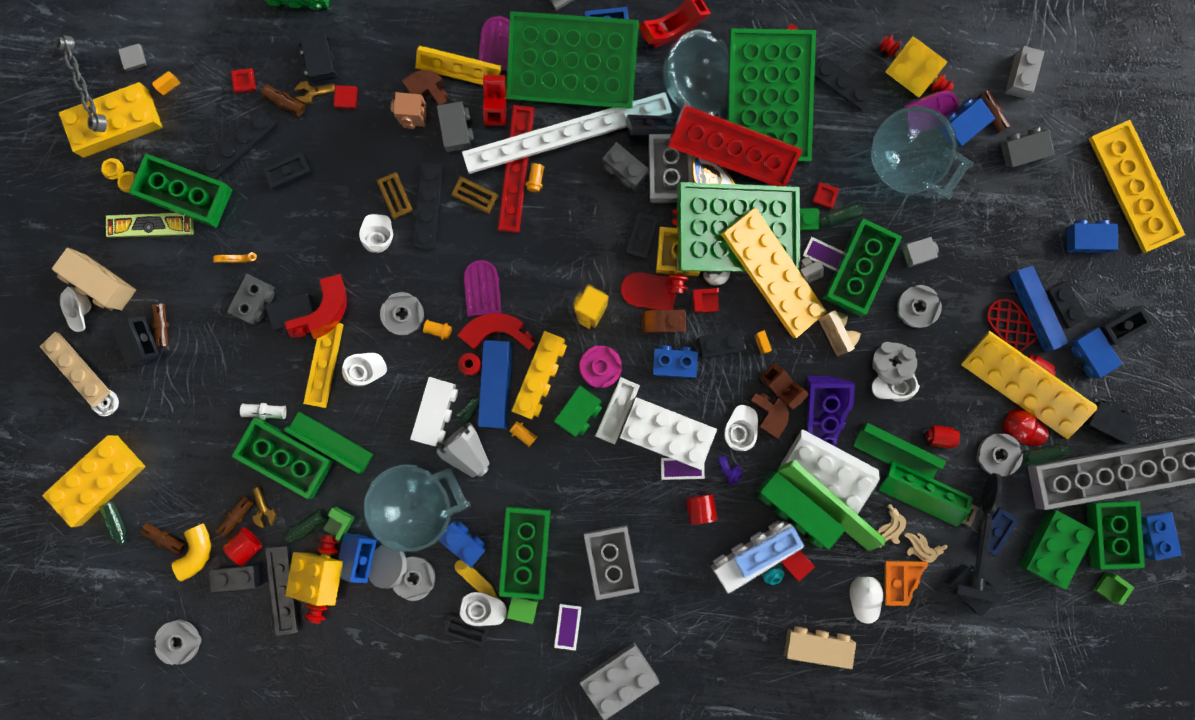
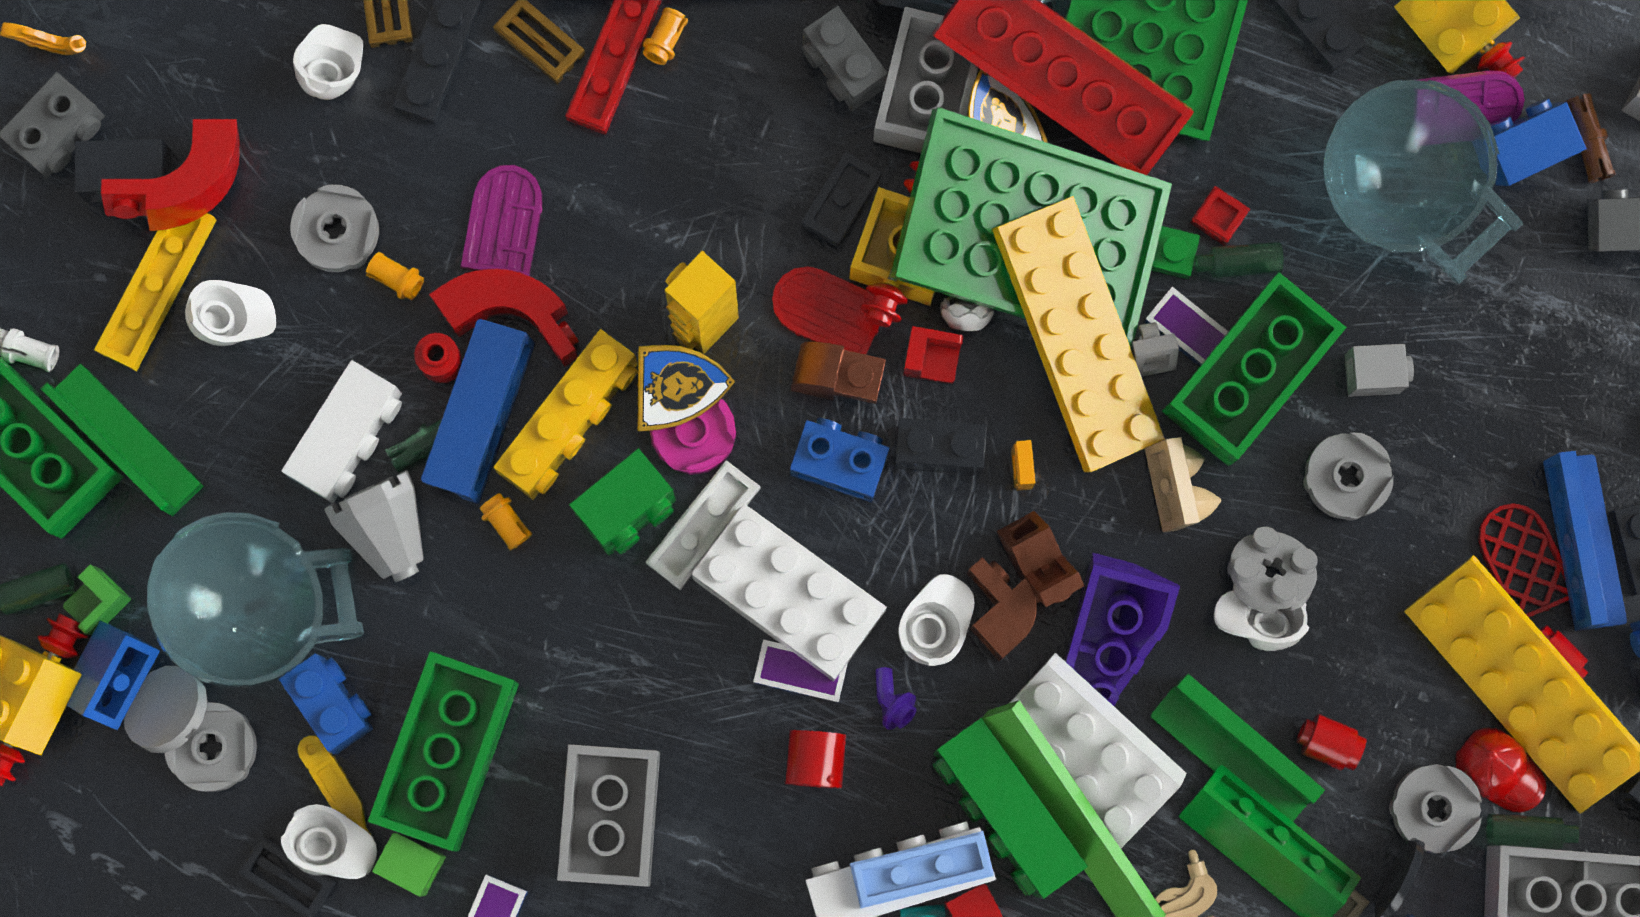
camera: 10 degrees right, 5 degrees down
(588, 348) = (676, 385): none -> shield

